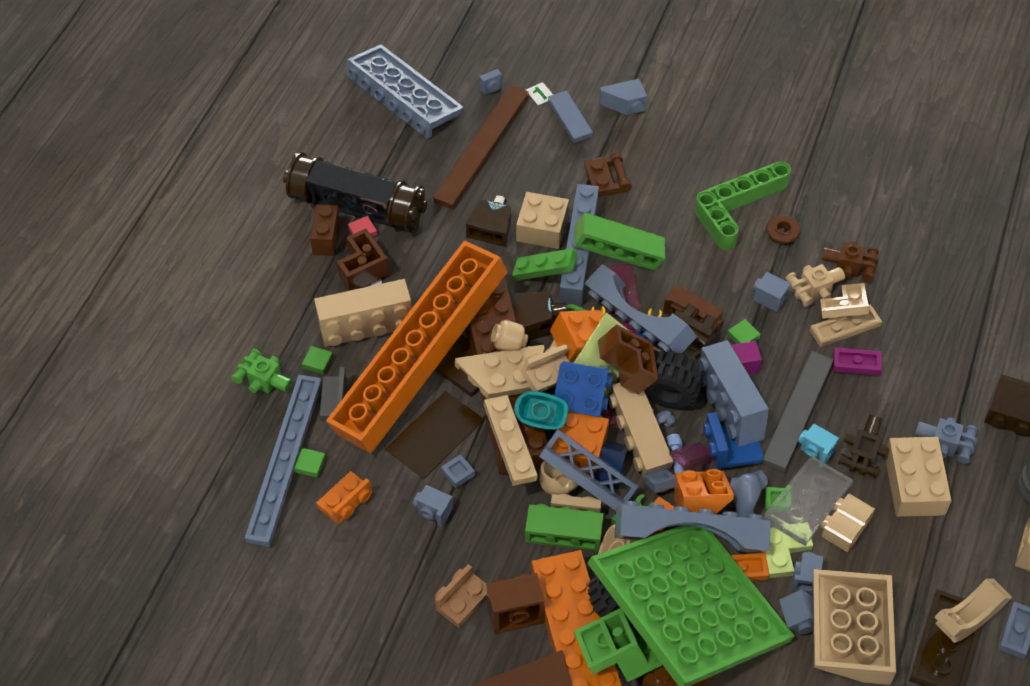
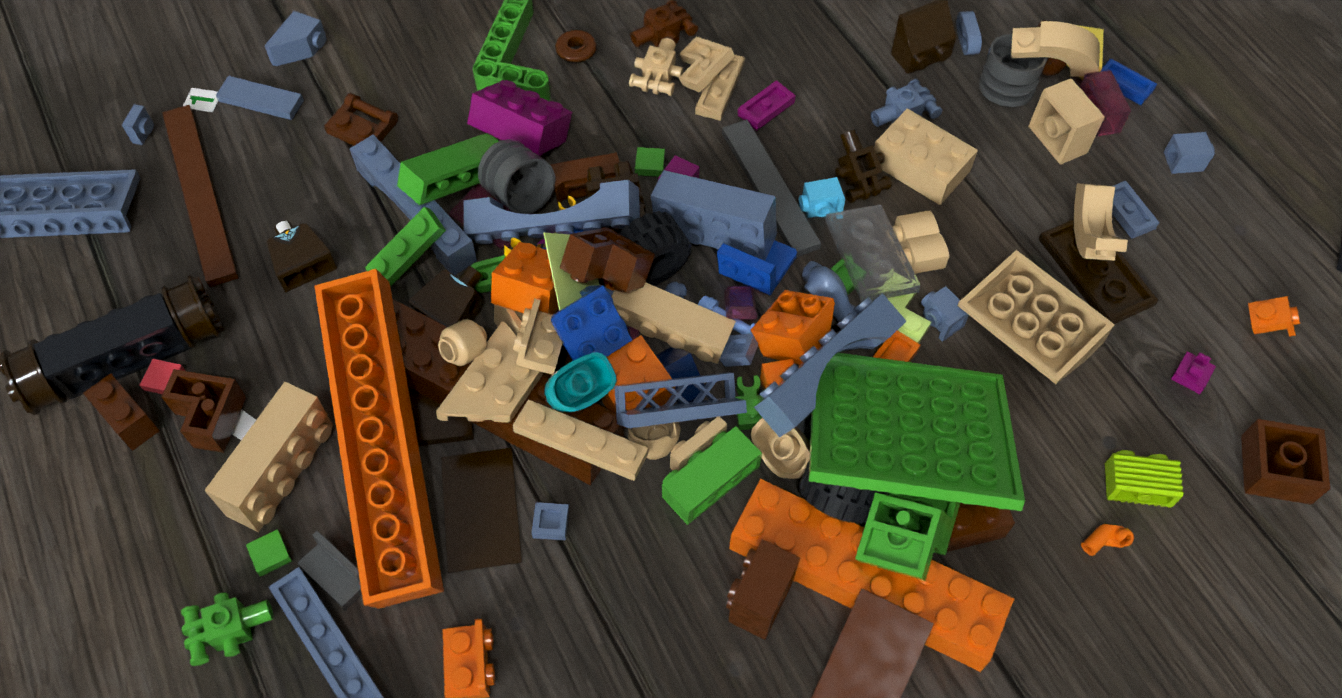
camera: 50 degrees left, 5 degrees up
(309, 462) = (386, 665): bright green tile -> none
(434, 504) = (568, 577): sand blue brick -> none
(461, 596) = (700, 637): medium nougat bracket -> none
(542, 220) = (350, 211): tan brick -> none
(647, 275) = (516, 176): none -> dark grey wheel
(691, 244) = (520, 116): none -> magenta brick
(771, 291) = (631, 105): sand blue brick -> none
(798, 611) = (983, 350): sand blue brick -> none

